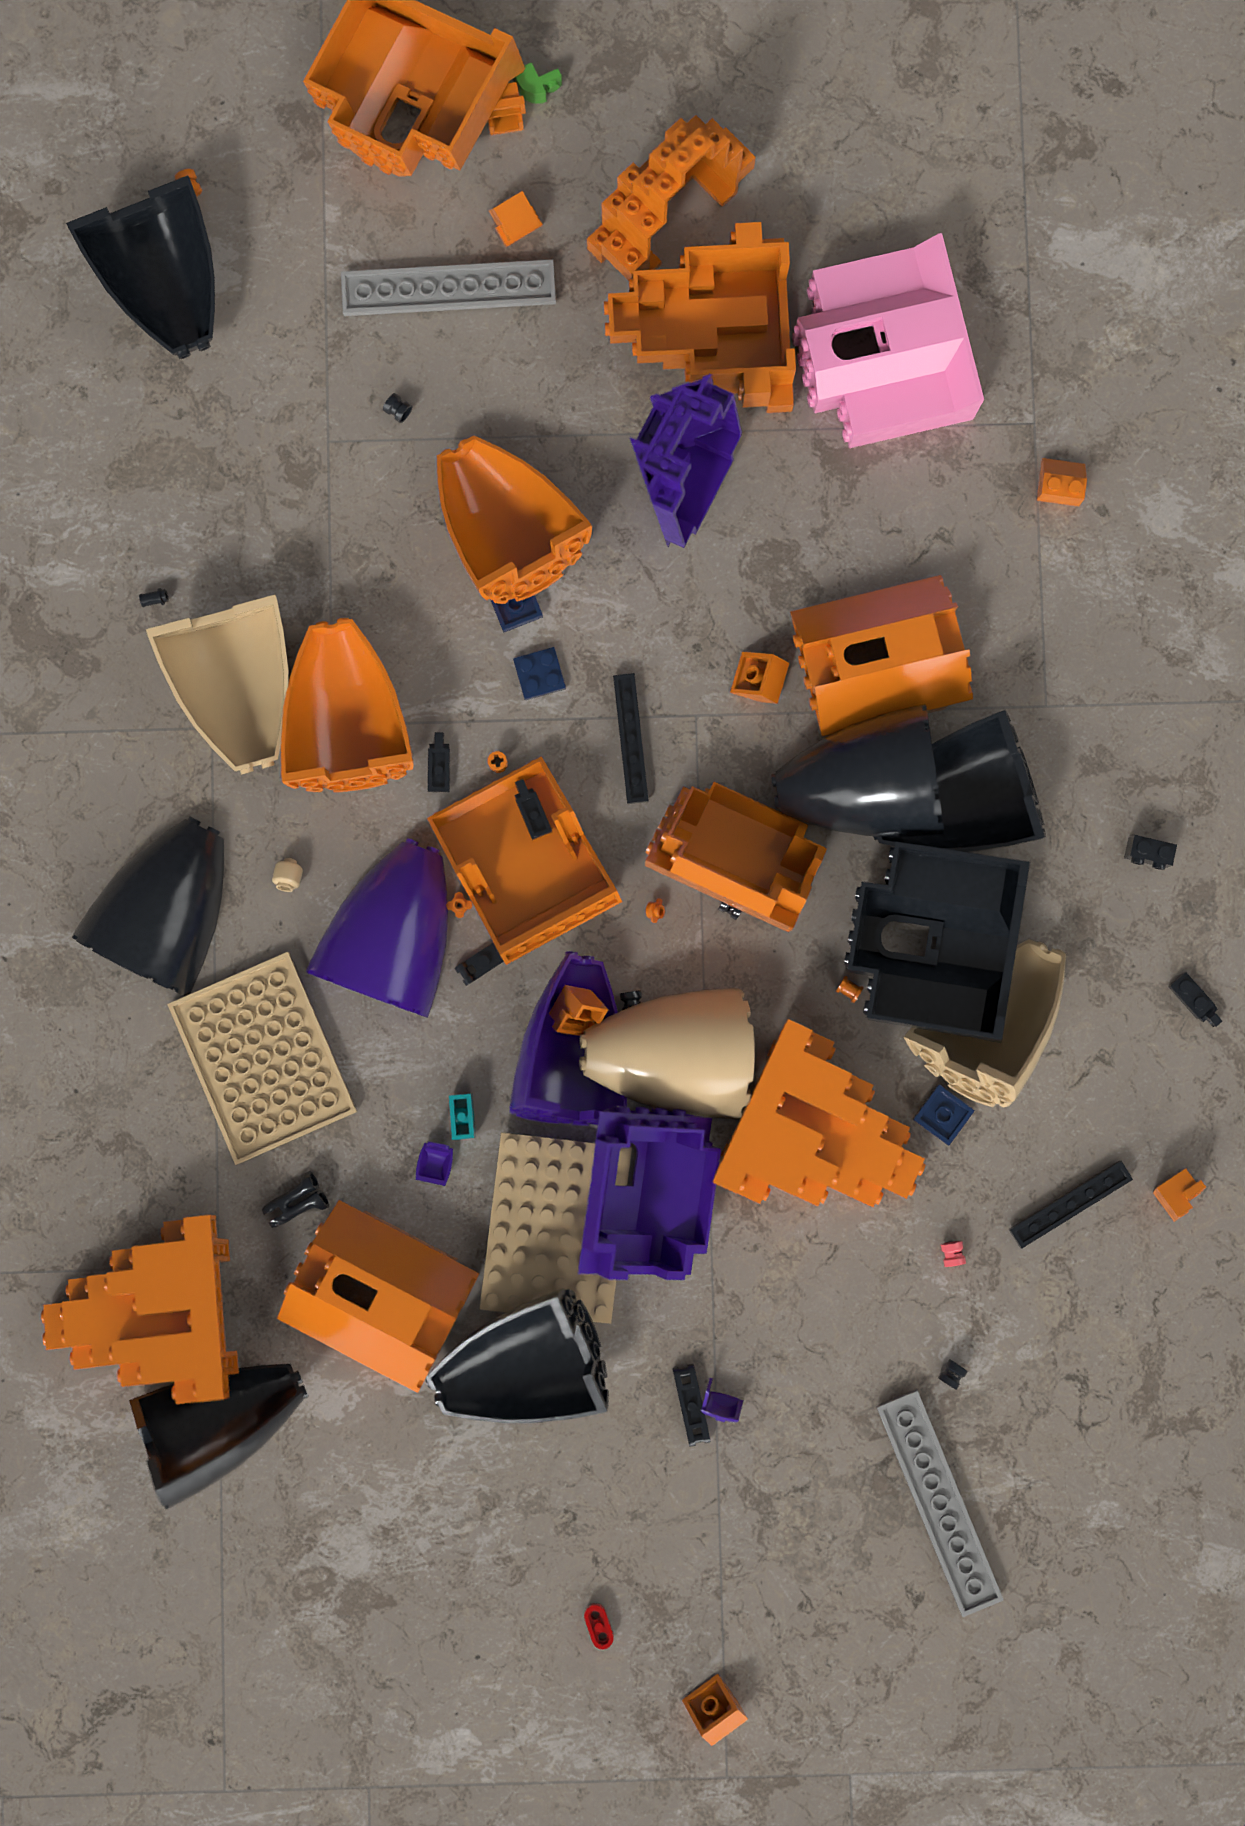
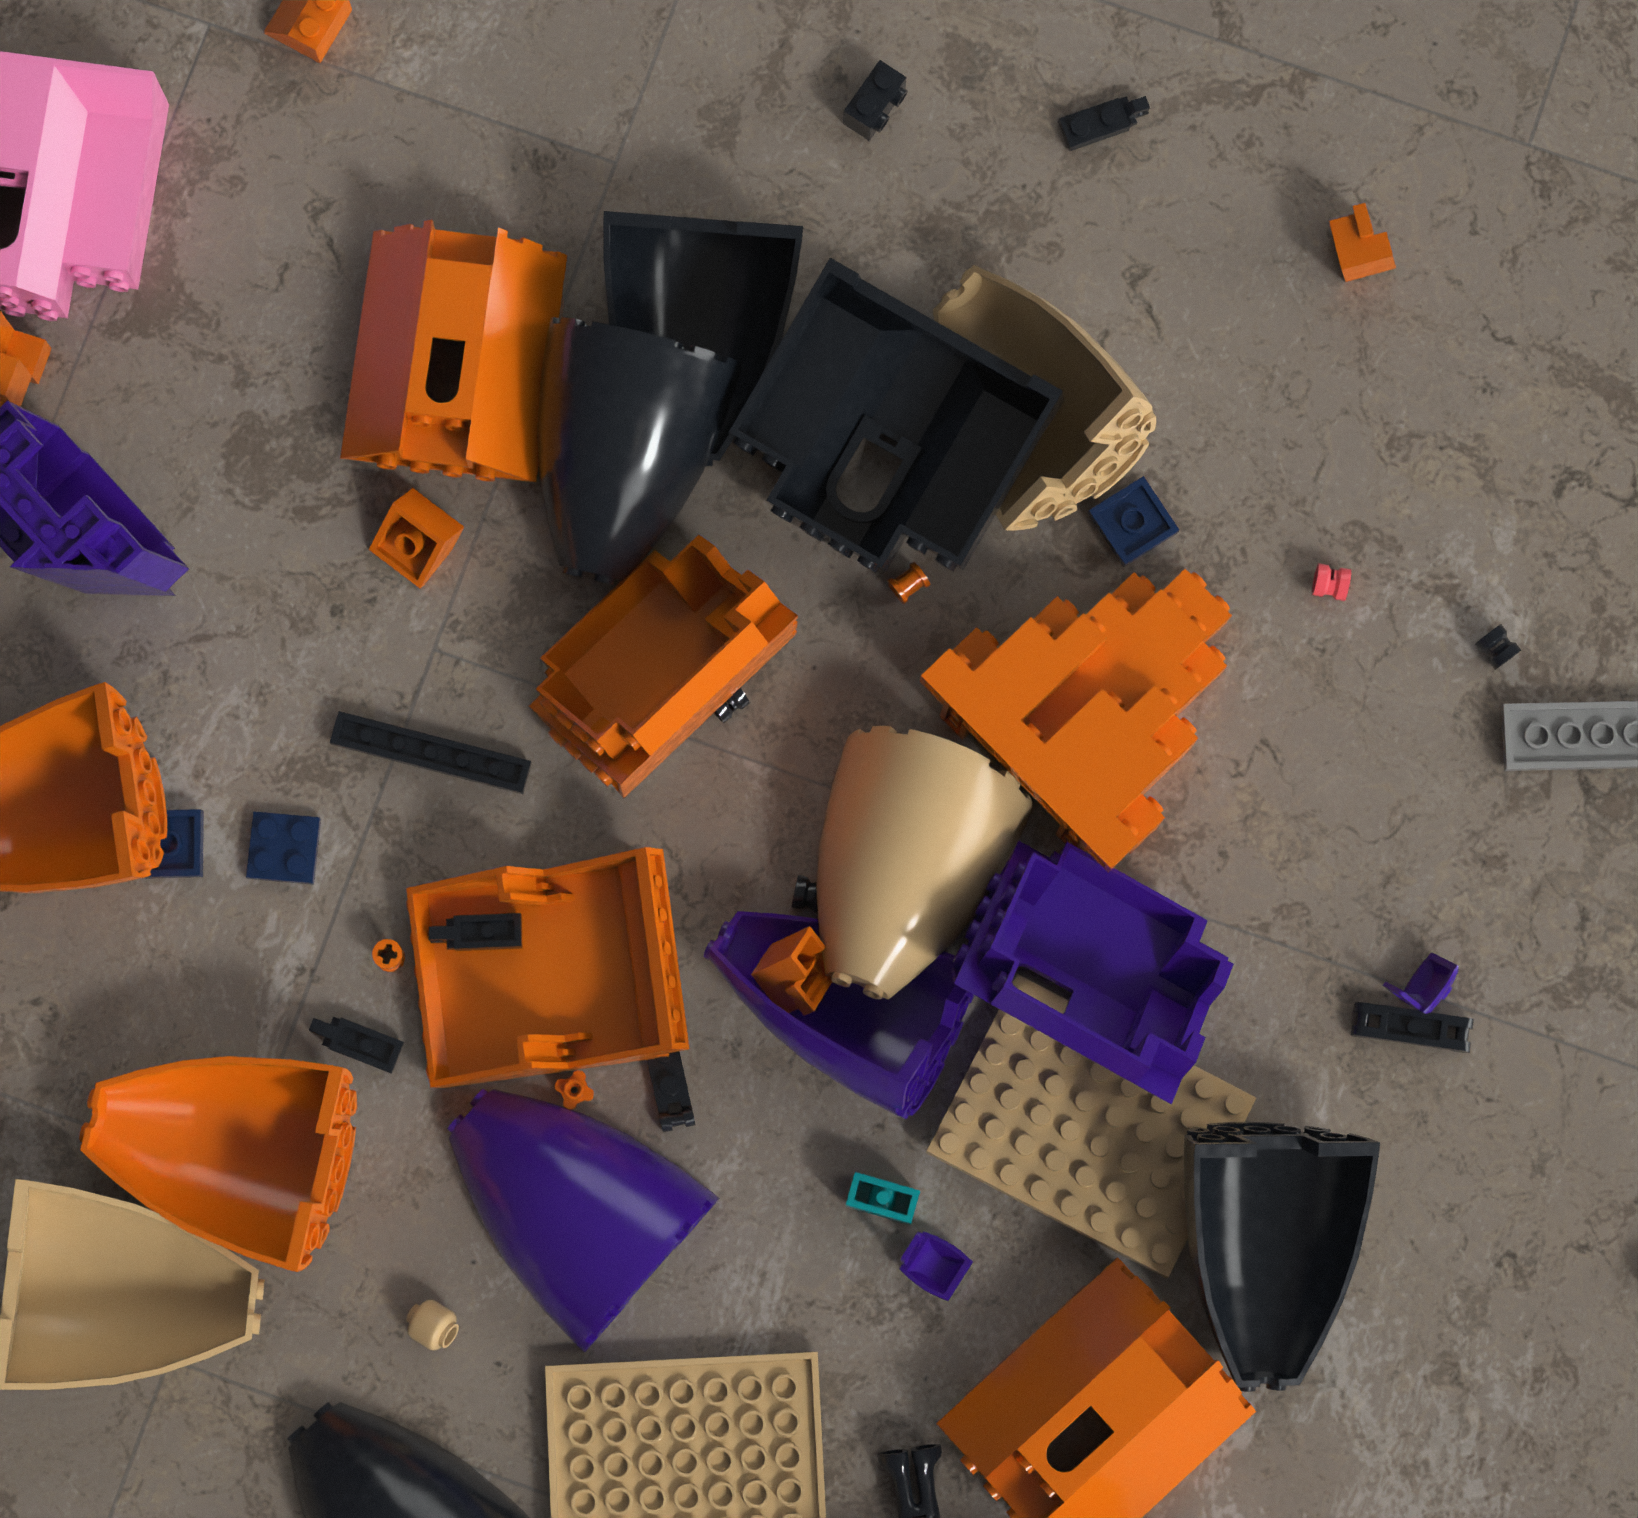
camera: 75 degrees left, 5 degrees down
(655, 910) = (691, 811): orange plate -> none
(1070, 1204) = (1321, 397): black plate -> none

